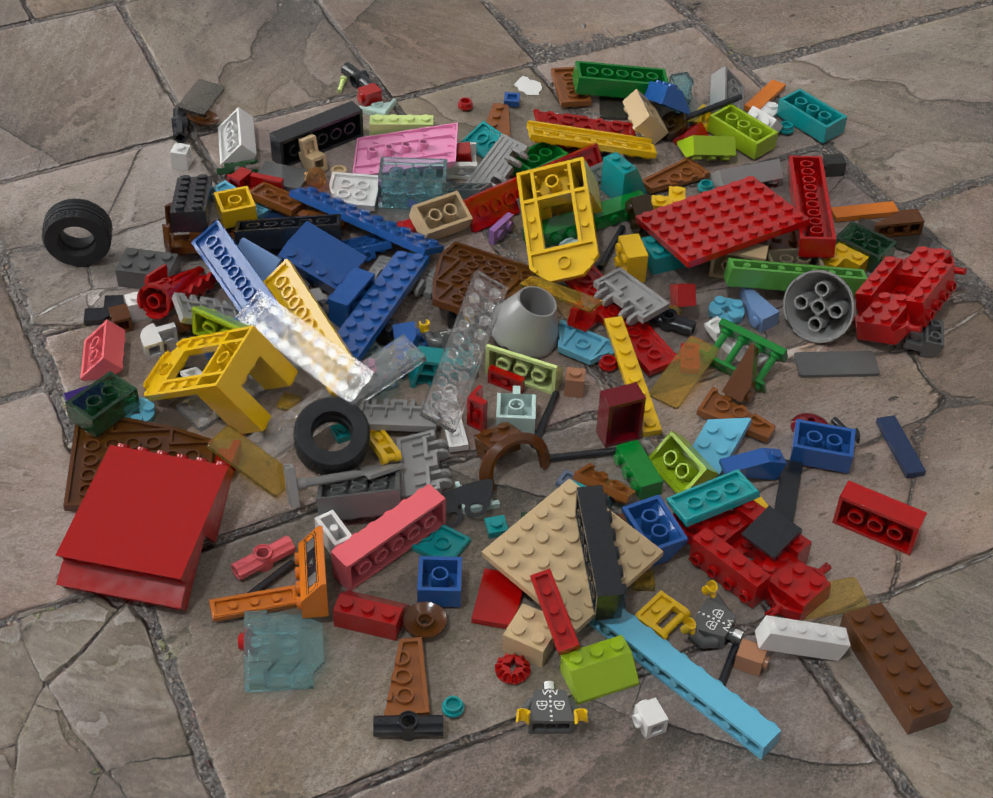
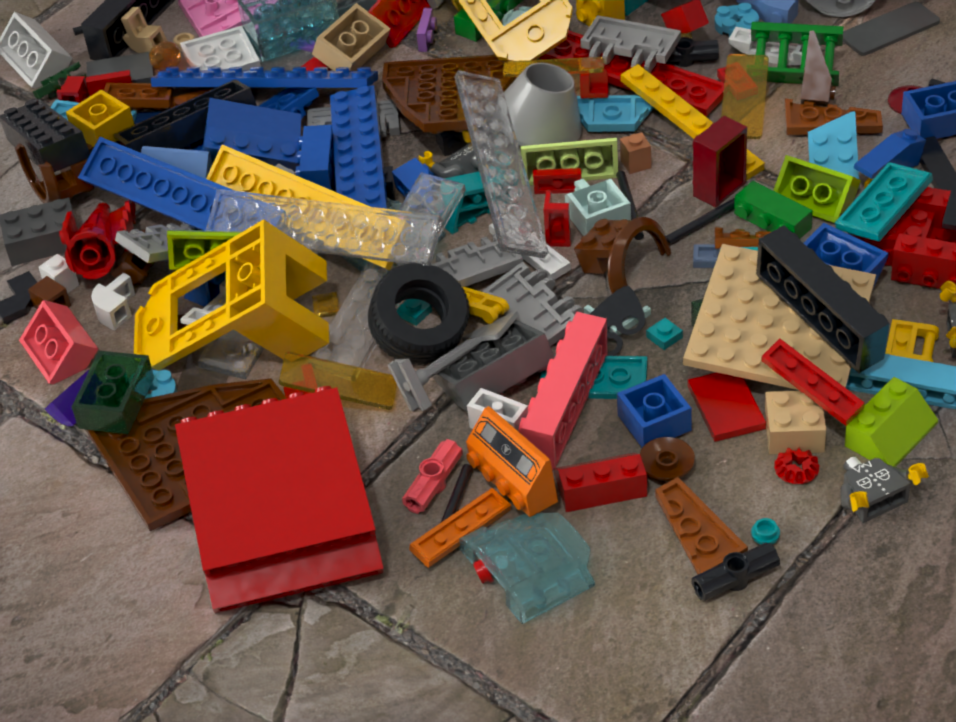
camera: 20 degrees left, 0 degrees up
(608, 363) = (653, 120): red plate -> none

